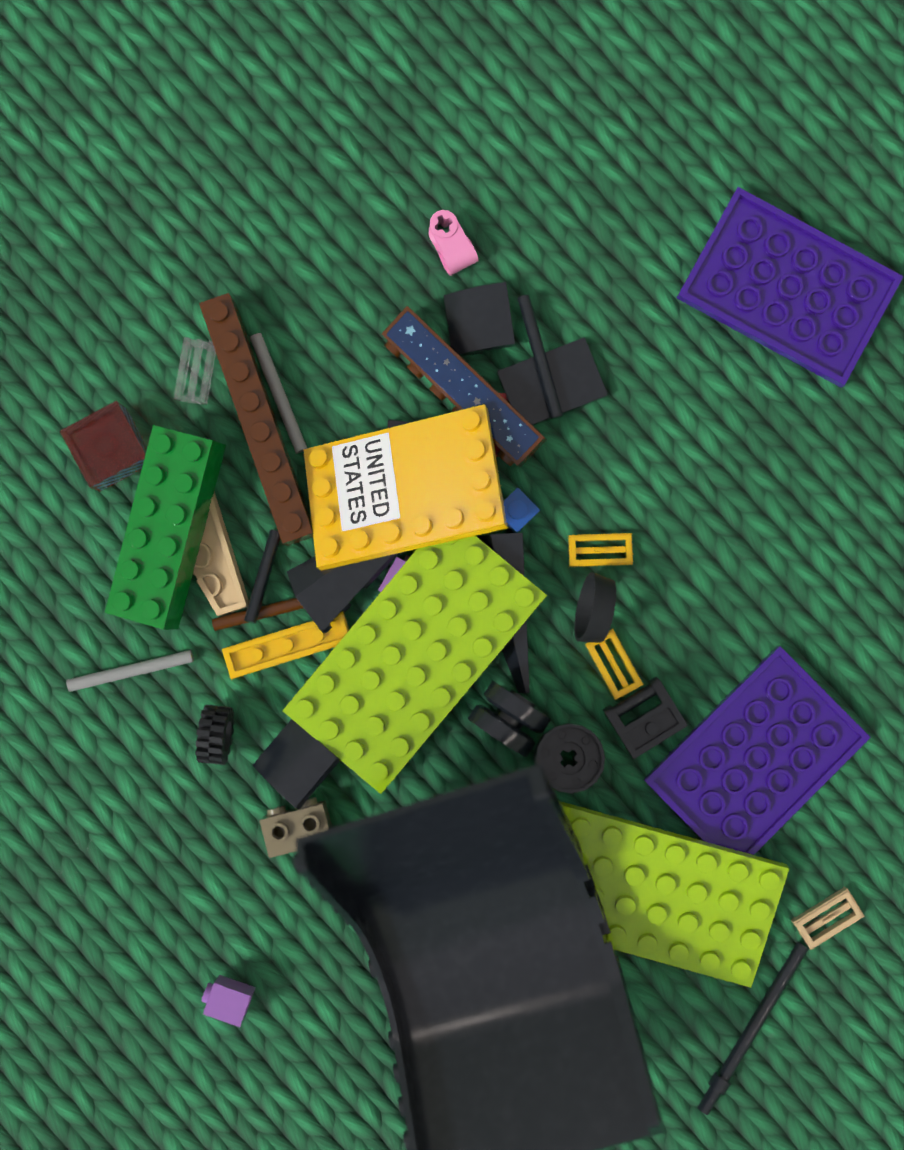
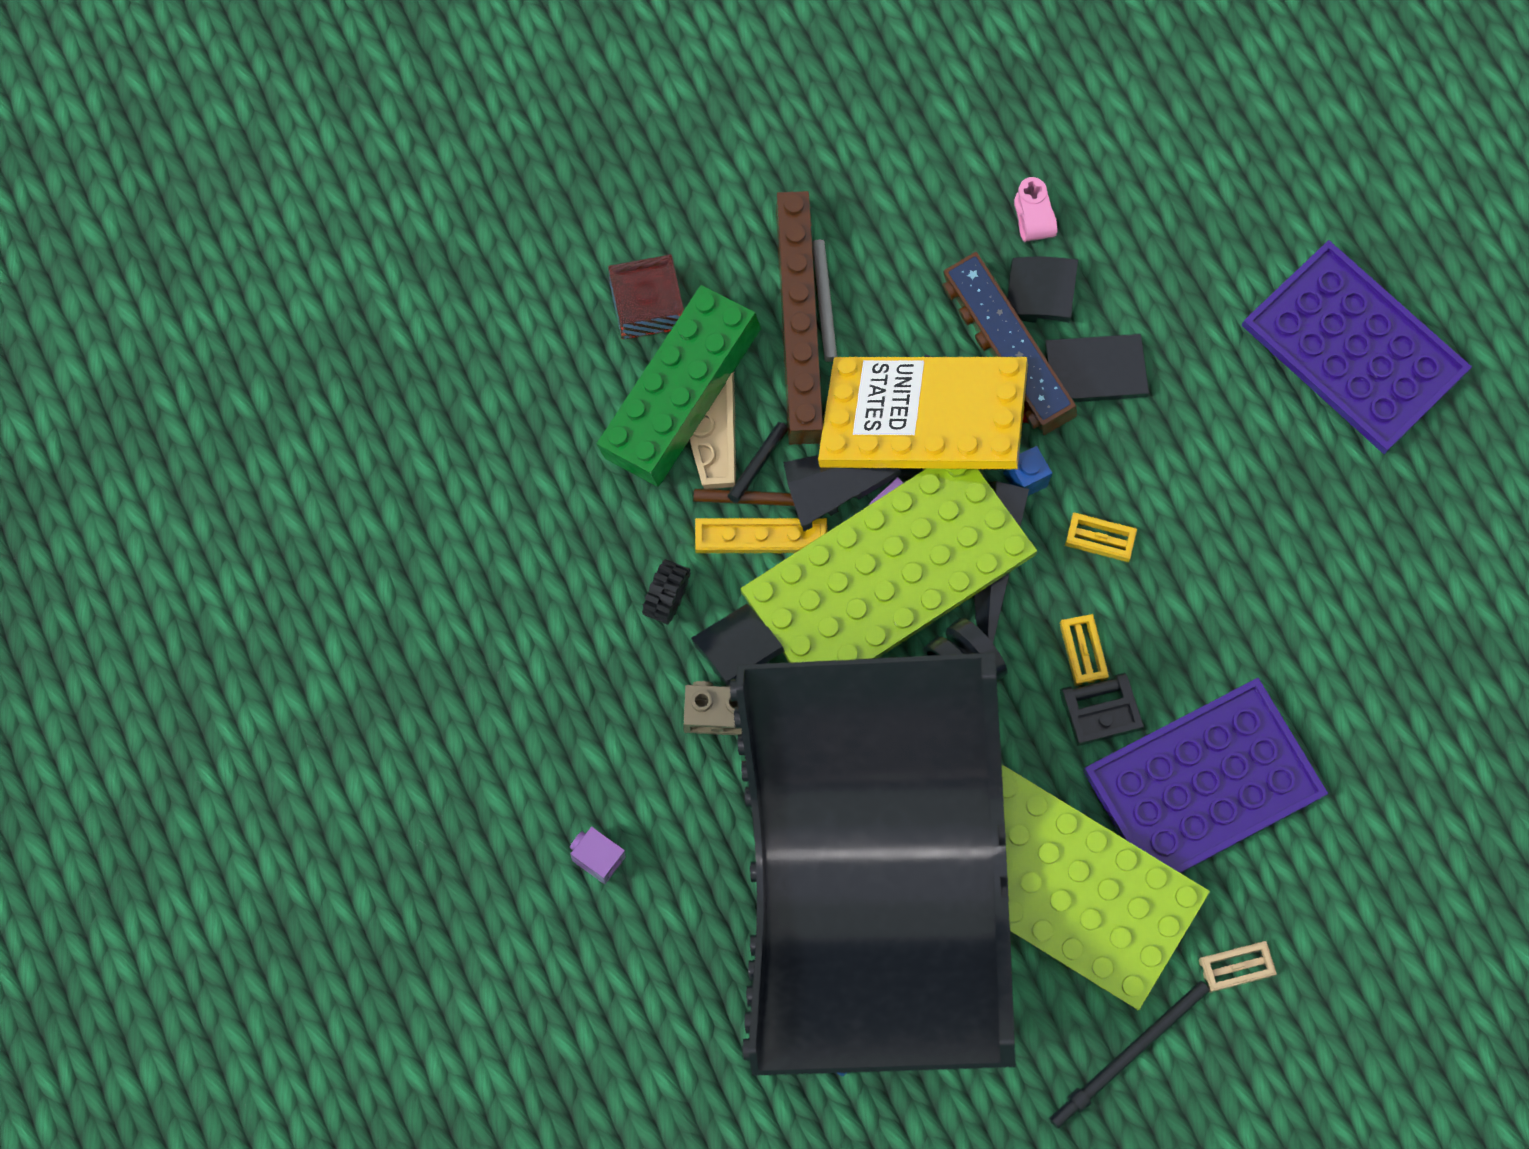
camera: 15 degrees right, 15 degrees down
(130, 670) = (597, 513): light grey bar -> none
(199, 344) = (761, 235): clear tile -> none
(540, 356) = (1091, 336): black bar -> none
(588, 757) = (1030, 706): black wheel -> none
(595, 609) = (1080, 582): black tyre -> none

